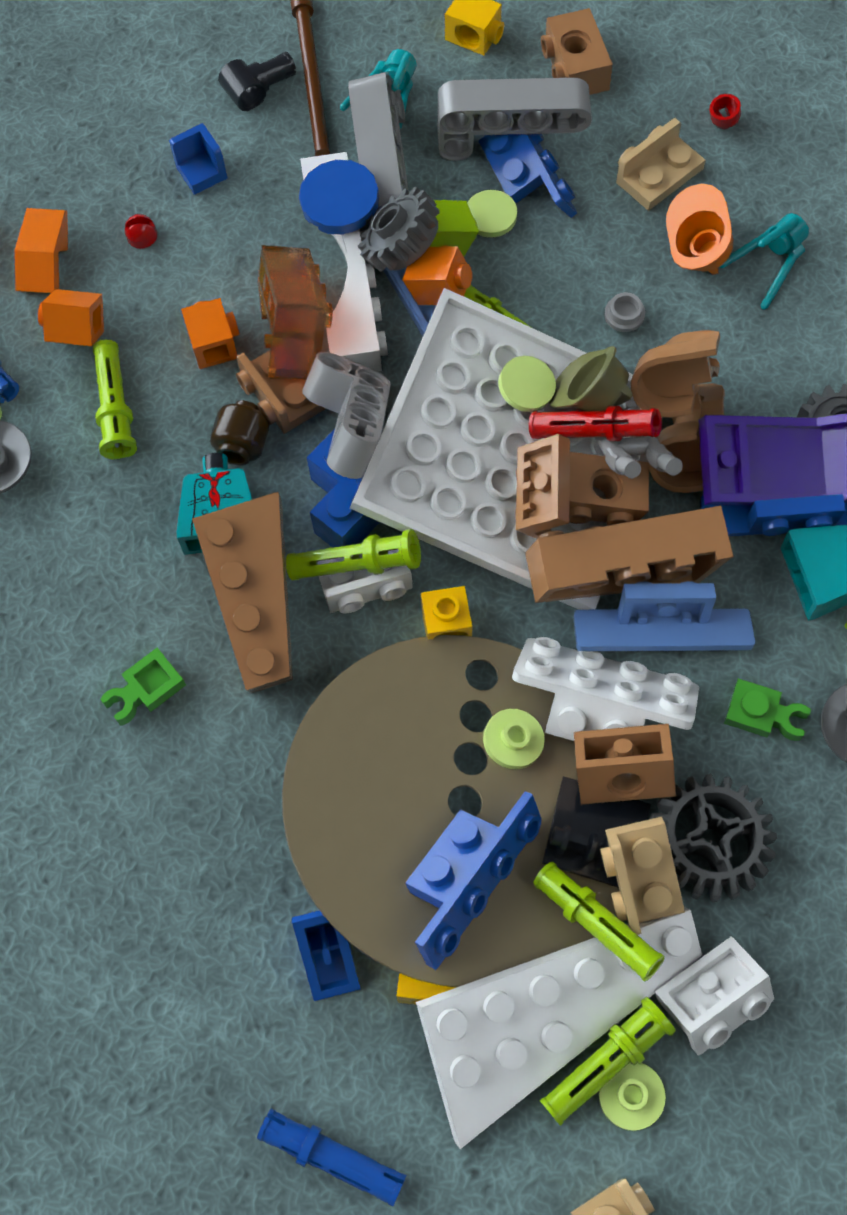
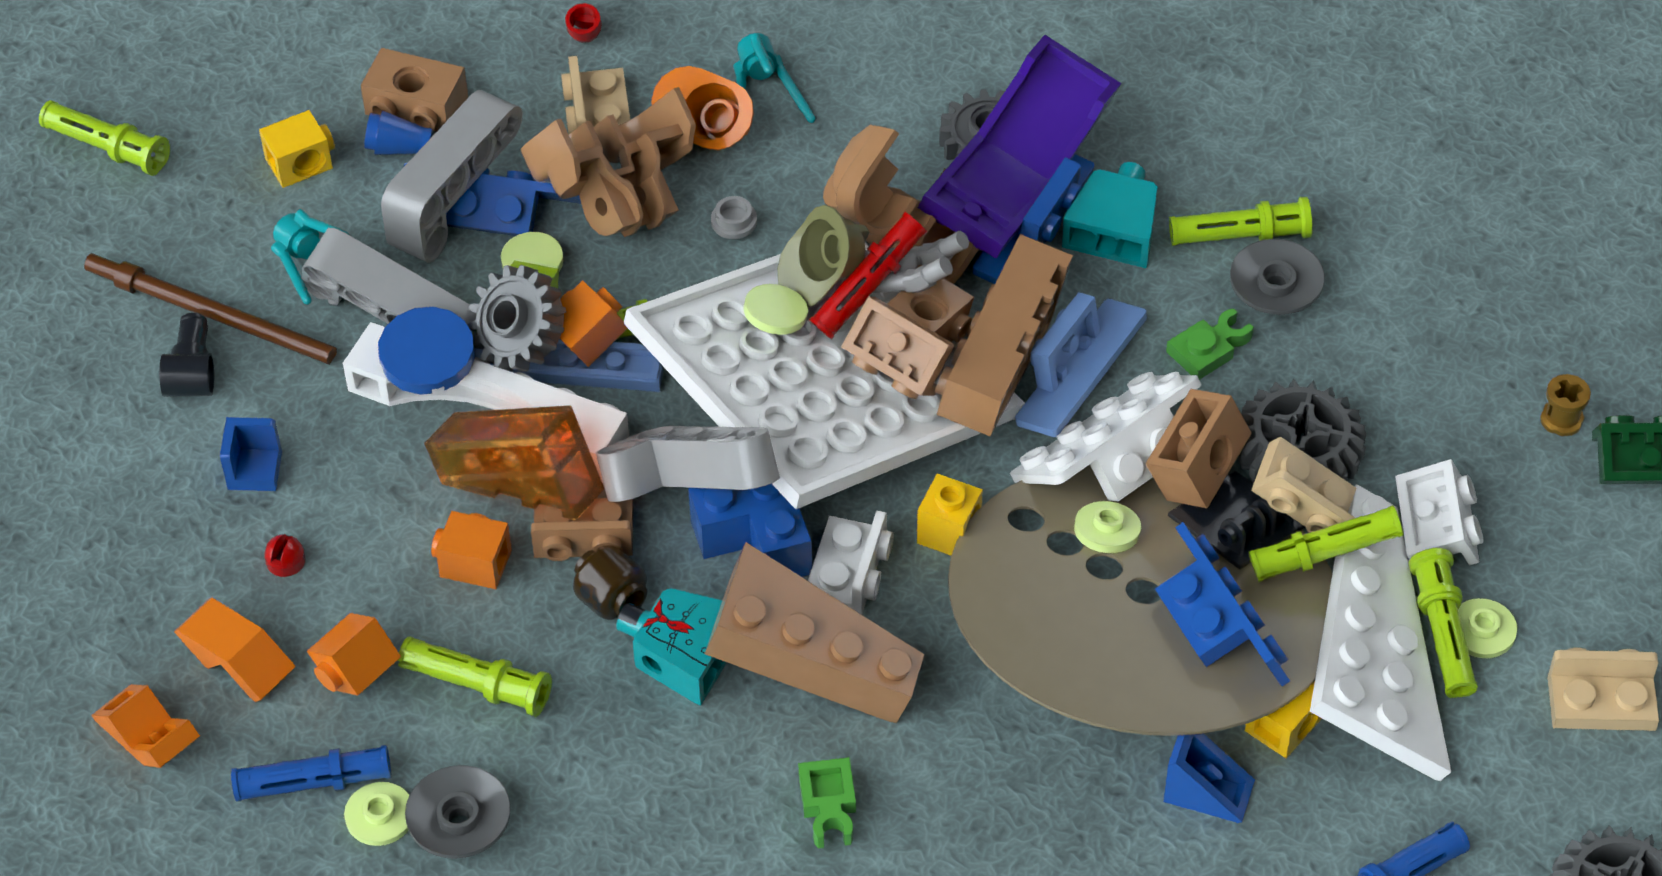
camera: 60 degrees left, 15 degrees down
(374, 554) = (851, 521): lime pin -> none
(528, 61) = (394, 135): none -> blue cone
(580, 232) = (643, 146): none -> medium nougat piece

